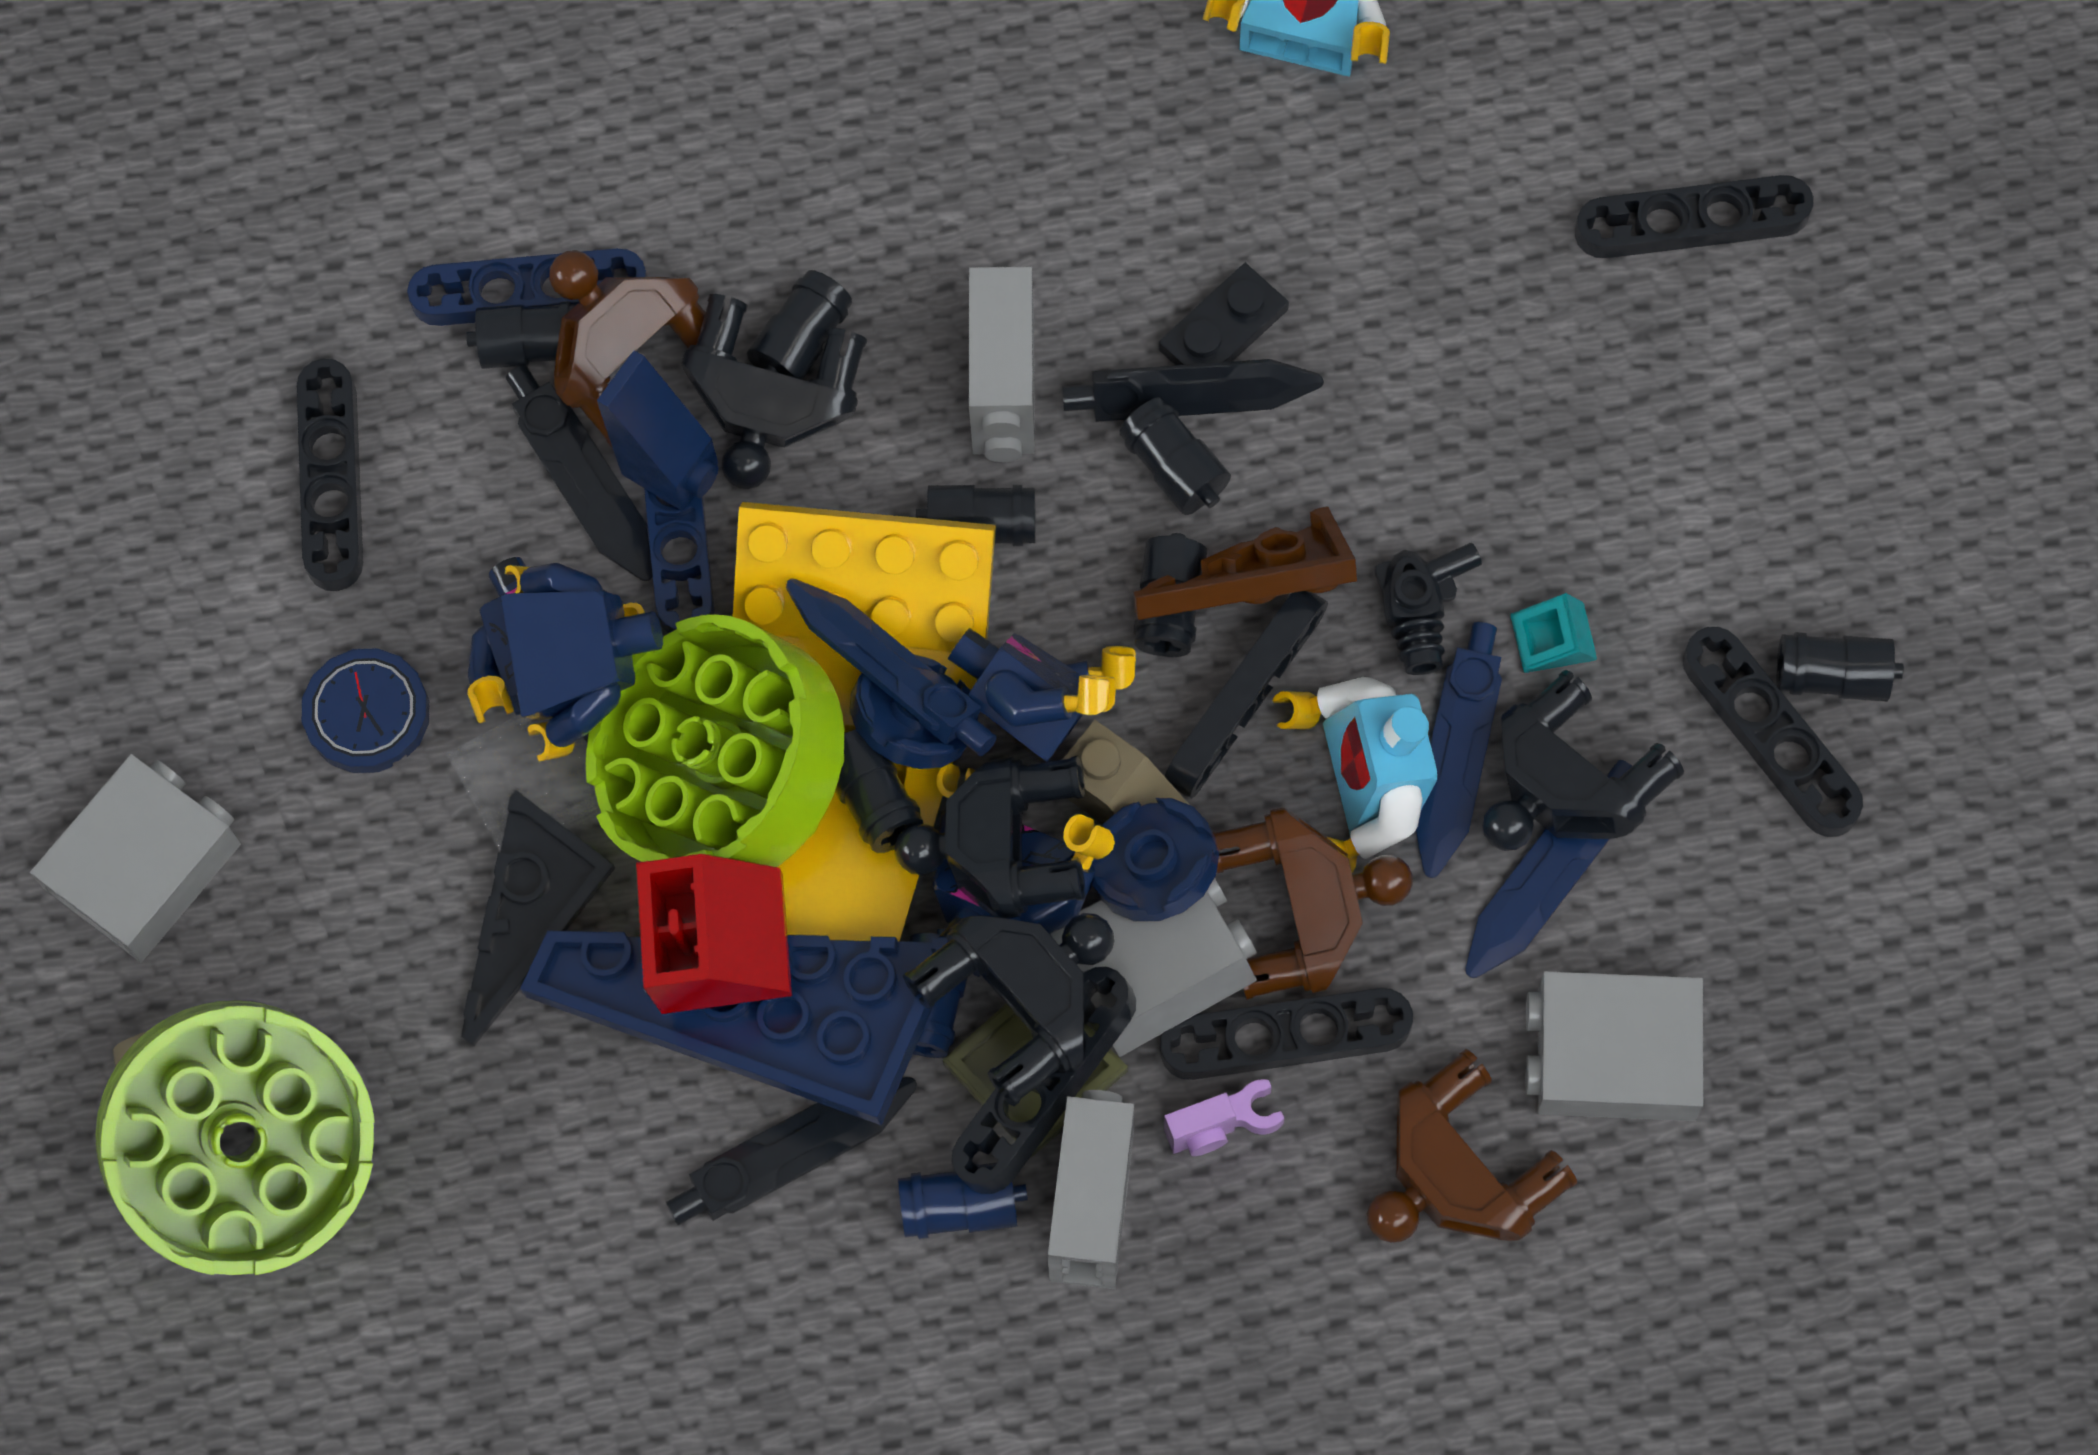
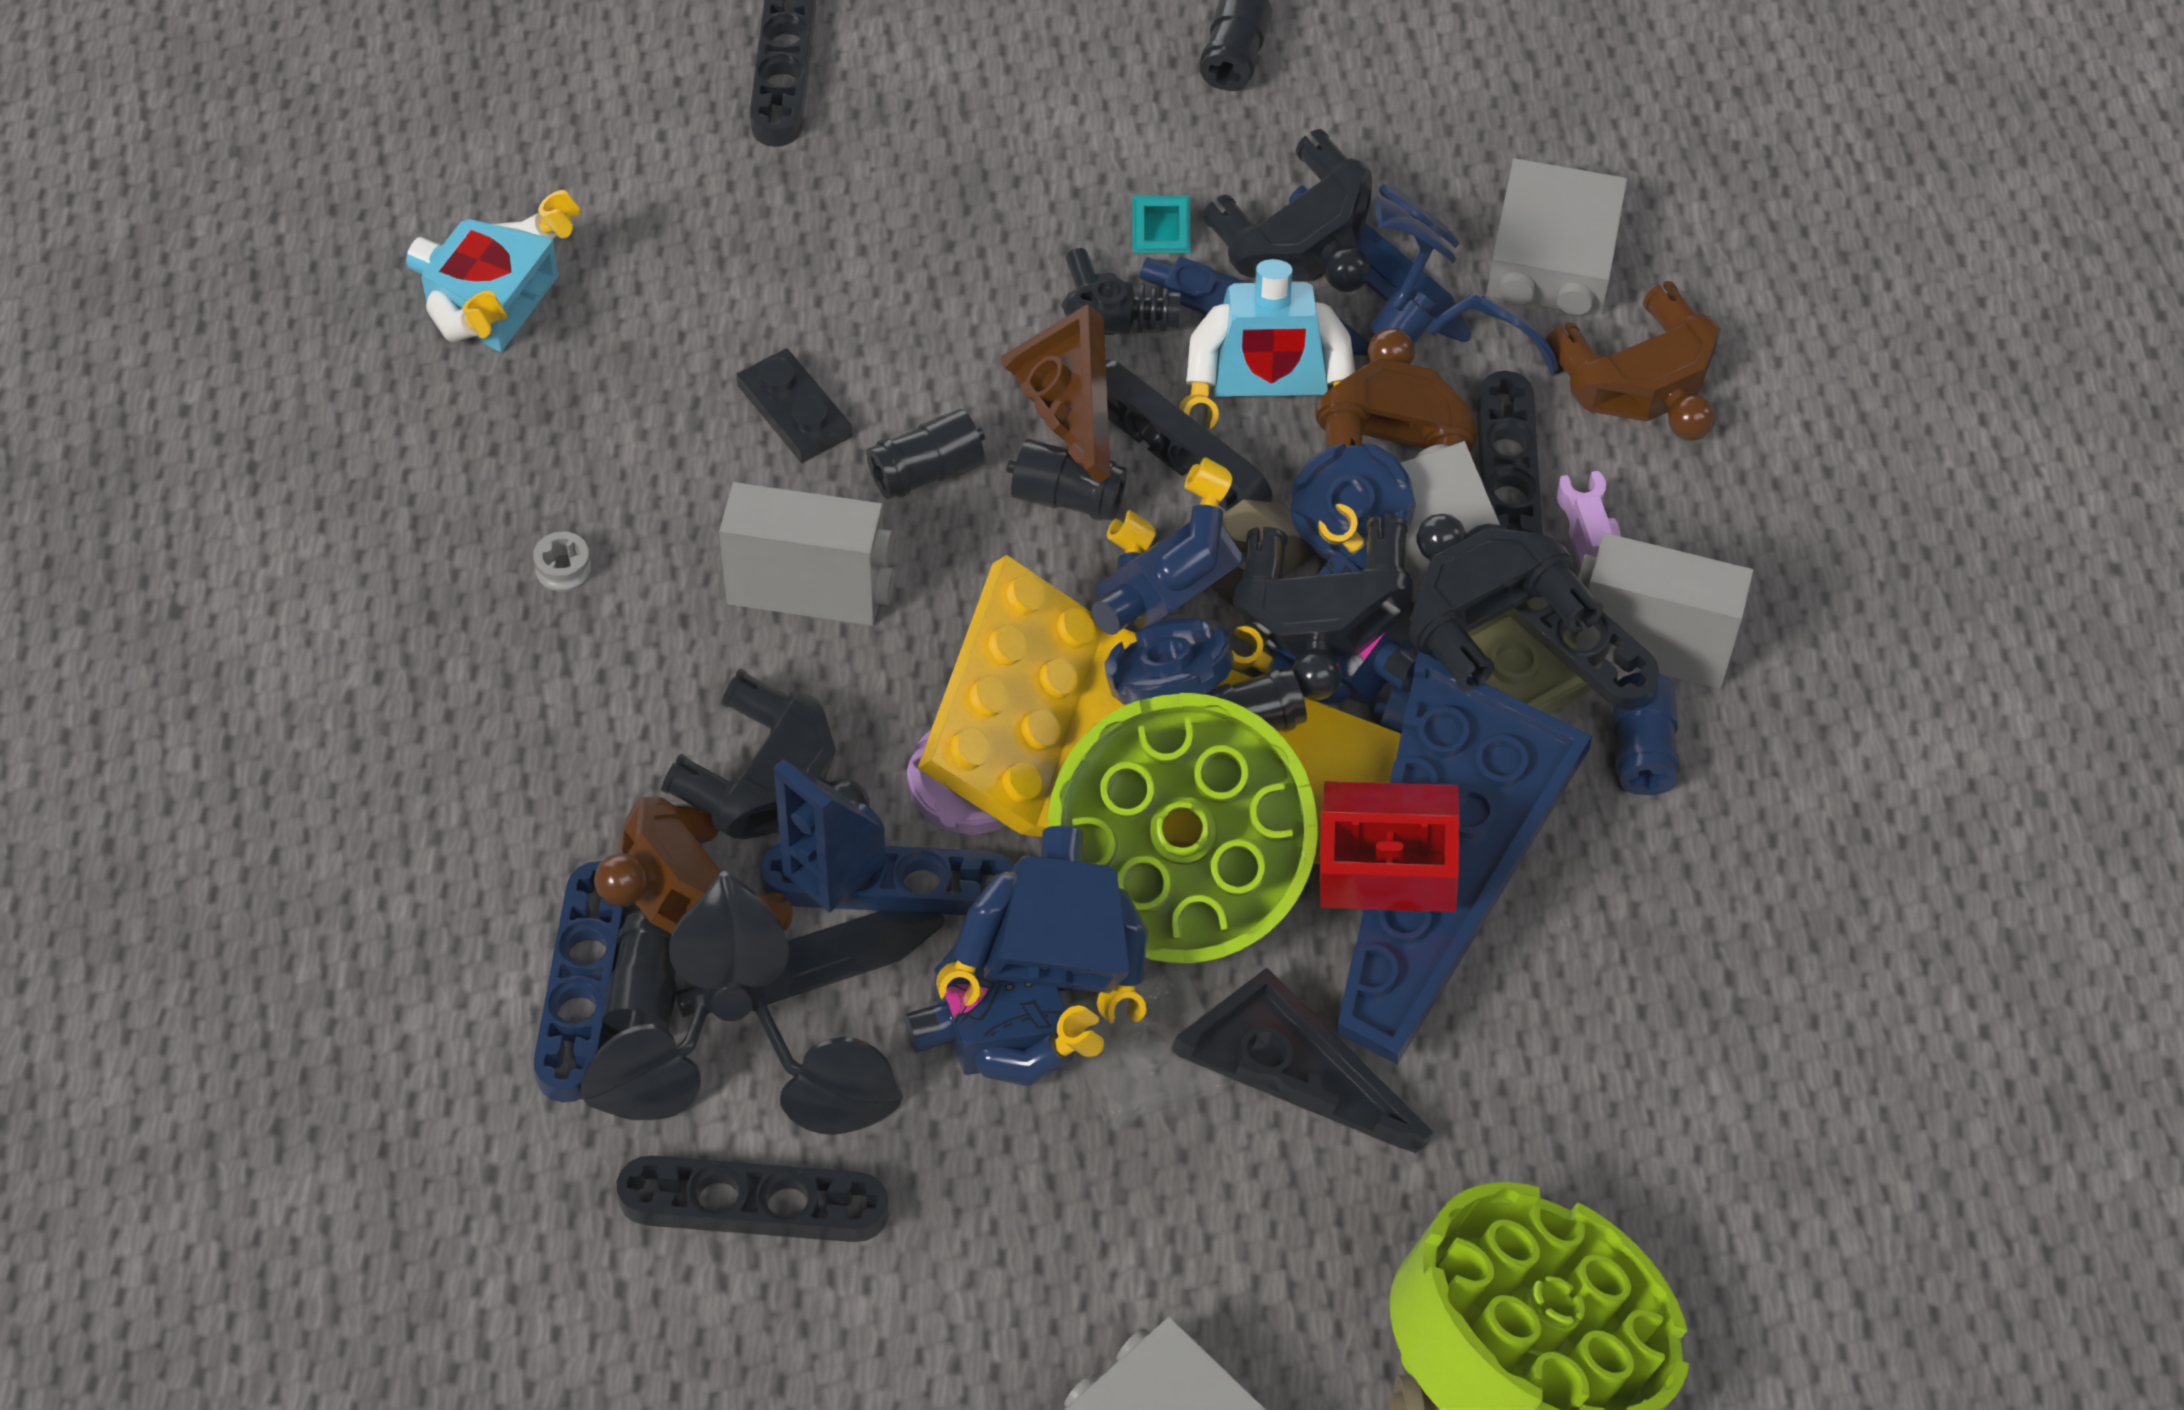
camera: 85 degrees left, 15 degrees down
(365, 710) = (1038, 1196): dark blue tile -> none
(499, 399) = (729, 949): none -> black plant
(778, 1157) = (1585, 895): black piece -> none
(798, 331) = (703, 730): black piece -> none
(892, 667) = (1175, 629): dark blue piece -> none
(993, 147) = (562, 578): none -> light grey bush
(1007, 508) = (948, 609): black piece -> none
(1193, 388) = (858, 424): black piece -> none
(1476, 847) = (1409, 307): none -> dark blue plant
(1780, 726) = (1278, 91): black beam -> none

